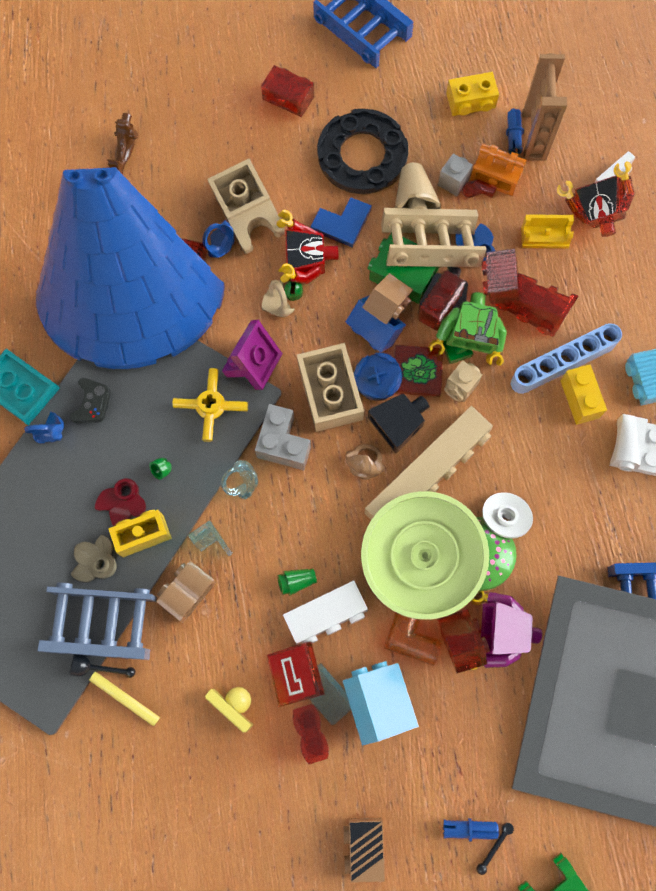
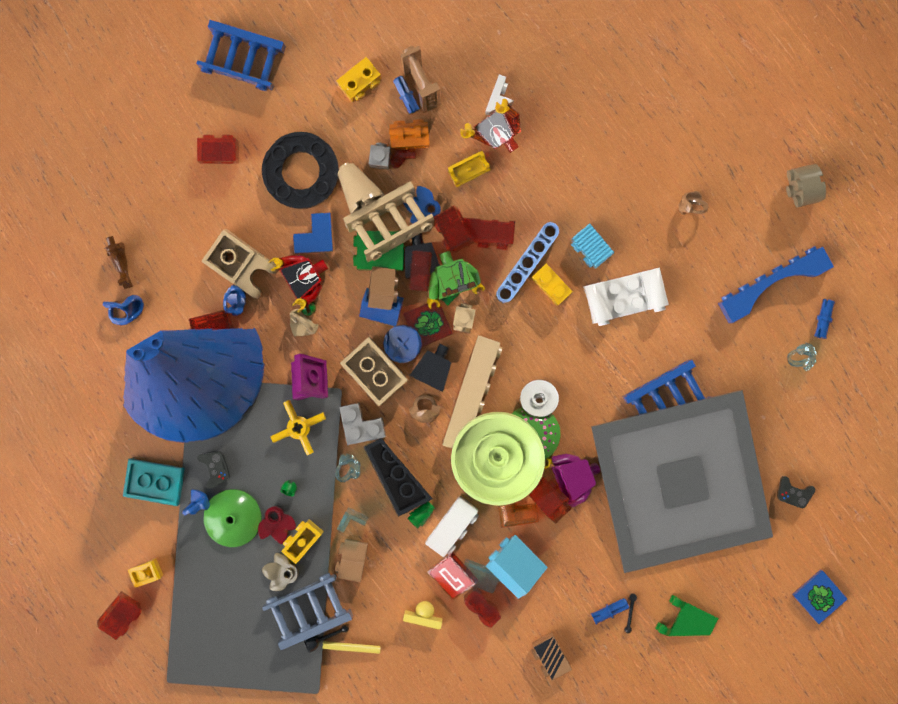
camera: 30 degrees left, 15 degrees up
(83, 484) = (241, 508): none -> bright green dish
(290, 526) = (399, 484): none -> black wedge

